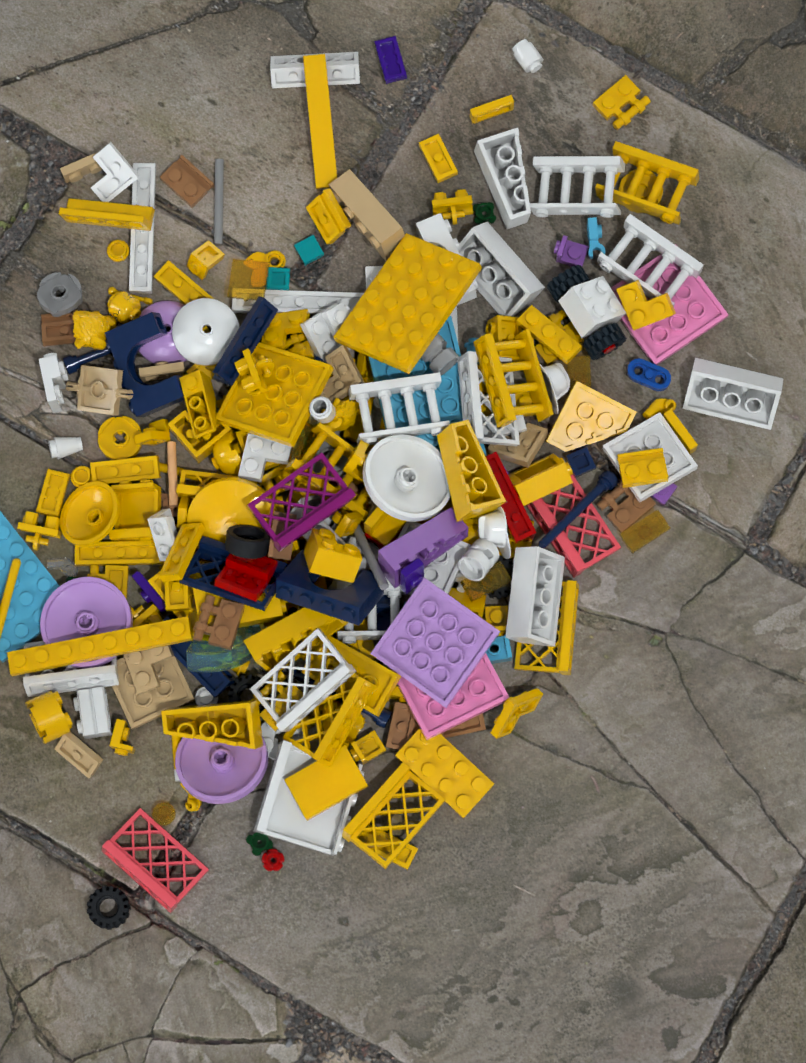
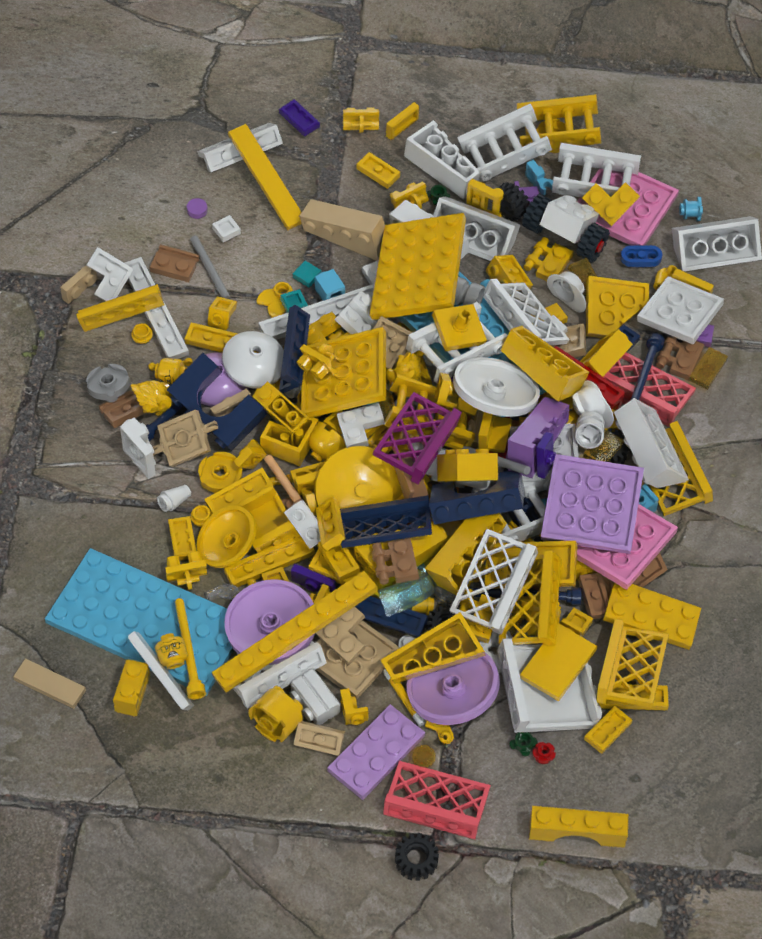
camera: 30 degrees left, 20 degrees down
(124, 789) = (376, 752): none -> lavender plate
(238, 126) = (197, 208): none -> medium lavender tile
(246, 576) = (398, 514): red slope -> none
(247, 541) = (384, 490): black tyre -> none
(248, 279) = (269, 309): clear yellow piece -> none
(254, 164) = (226, 228): none -> white plate
(263, 947) = (604, 827): none -> yellow arch
(318, 405) = (395, 361): white brick -> none
(321, 275) = (329, 285): none -> medium azure brick
(328, 216) = (311, 241): yellow plate -> none
(342, 865) = (608, 729): none -> yellow plate
(346, 522) = (463, 442): yellow tile -> none
(404, 397) = (459, 327): none -> yellow tile
(451, 90) = (361, 119): none -> yellow hips
(495, 380) = (529, 298): yellow fence -> none
(513, 709) = (687, 534): yellow plate -> none
(516, 240) = (479, 194): none -> yellow plate
(527, 56) = (410, 76): white brick -> none
(547, 257) = (513, 202): none -> black tyre
(549, 334) = (545, 254): yellow plate -> none
(617, 97) = (497, 80): yellow plate -> none
(642, 467) = (681, 315): yellow plate -> none
(729, 341) = (691, 209): none -> medium azure brick

